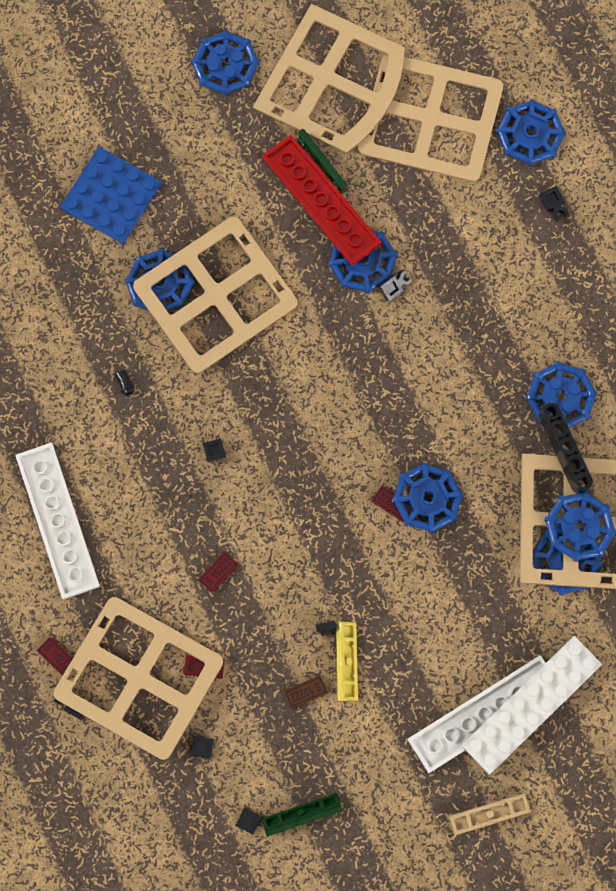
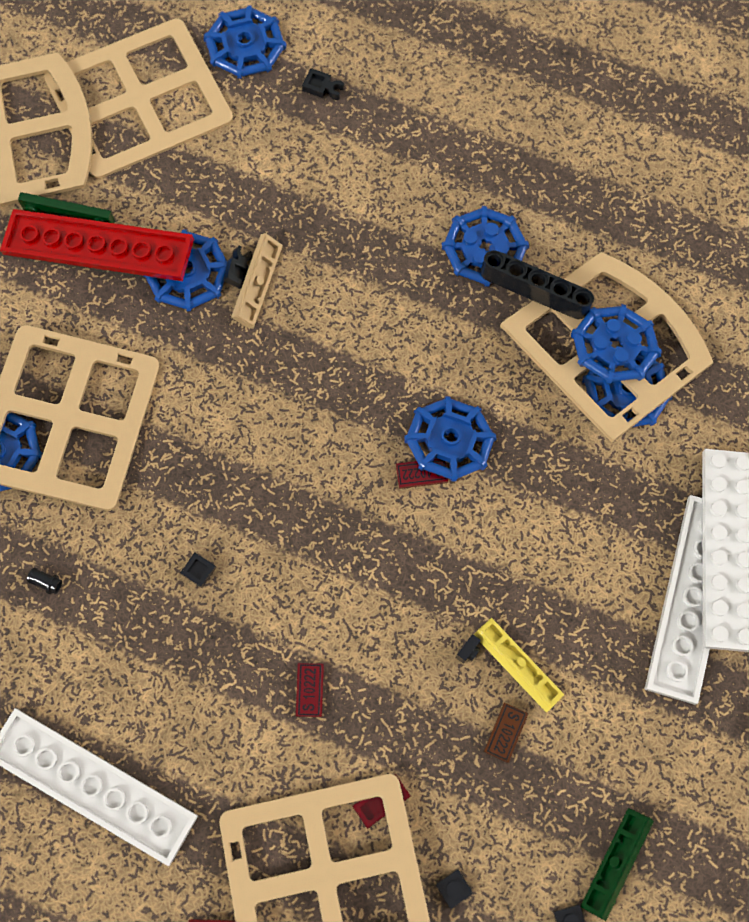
camera: 50 degrees left, 5 degrees down
(398, 302) = (257, 281): none -> tan plate

